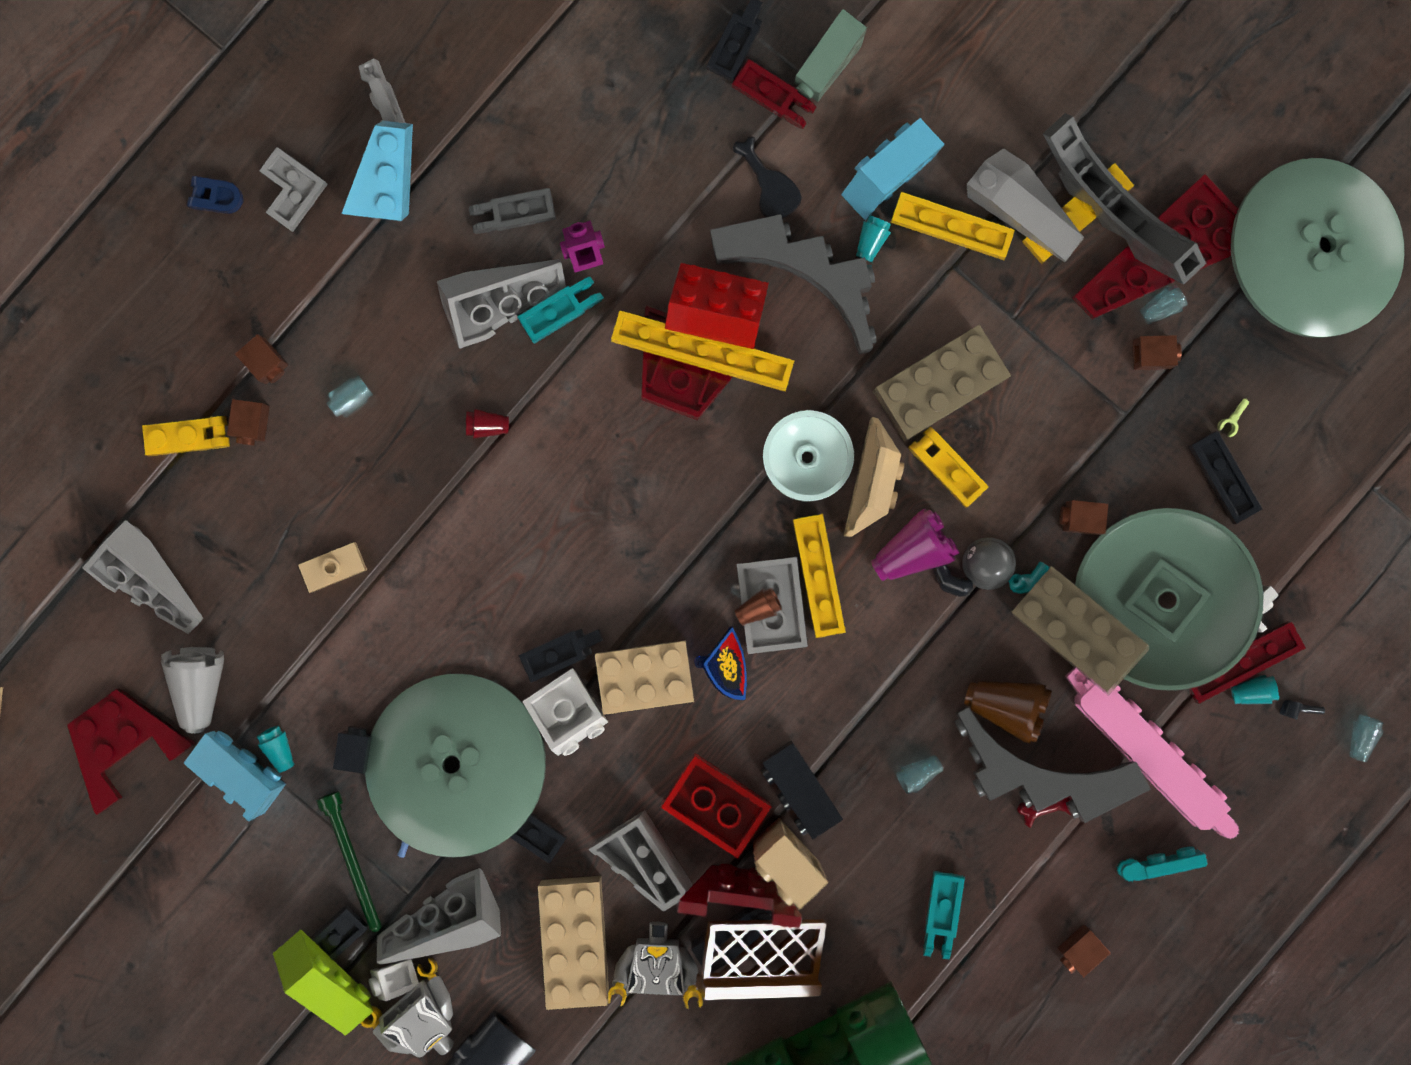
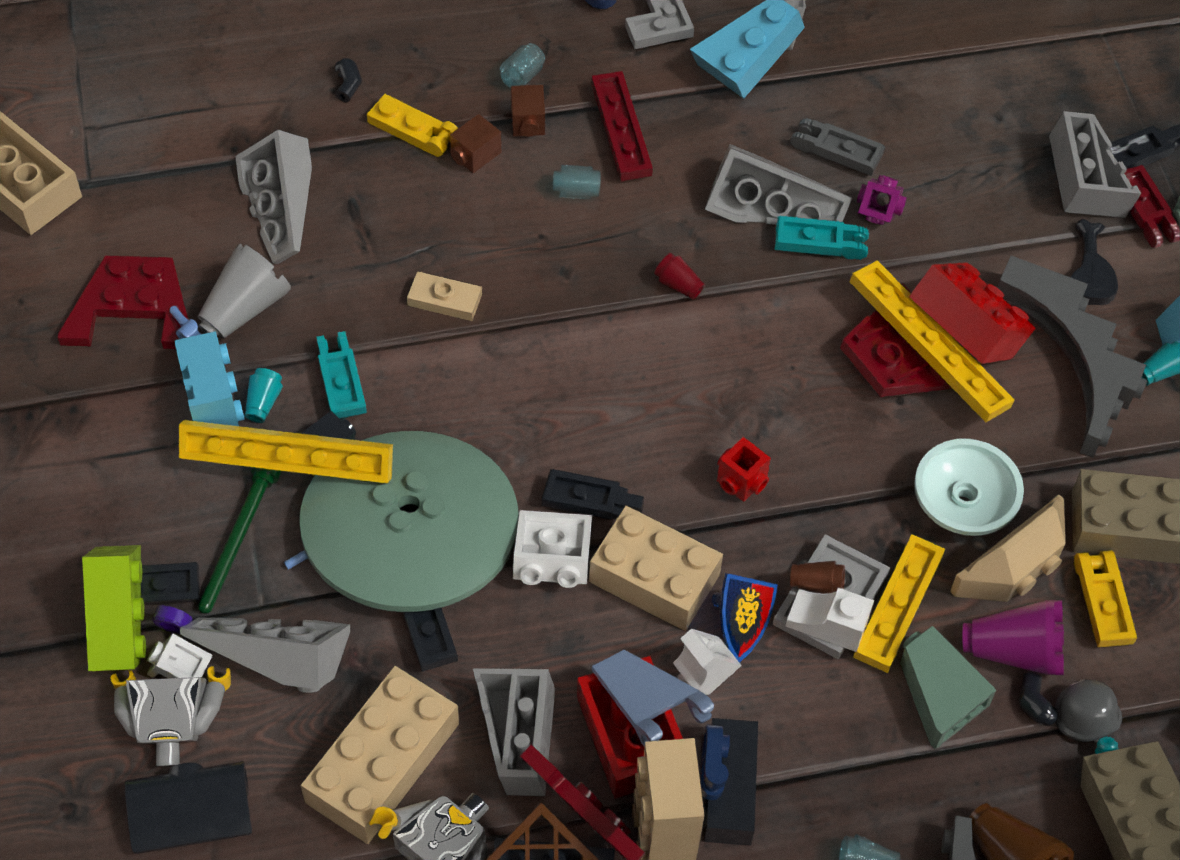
camera: 35 degrees right, 30 degrees down
(103, 428) = (351, 76): none -> black arm
(185, 743) = (188, 327): none -> medium blue hand
(223, 320) = (522, 65): none -> clear light blue brick
(317, 692) = (341, 378): none -> teal hinge
(337, 792) = (285, 451): none -> yellow plate
(340, 317) = (621, 126): none -> dark red plate
(363, 955) = (170, 618): none -> dark purple tile
(636, 558) = (743, 470): none -> red brick
(710, 96) = (1087, 169): none -> light grey wedge
(712, 786) = (647, 692): none -> sand blue flag
(730, 724) = (705, 661): none -> white arch
(782, 788) = (713, 773): none -> dark blue plate
(785, 632) = (831, 616): none -> white arch
(887, 618) = (943, 685): none -> sand green slope

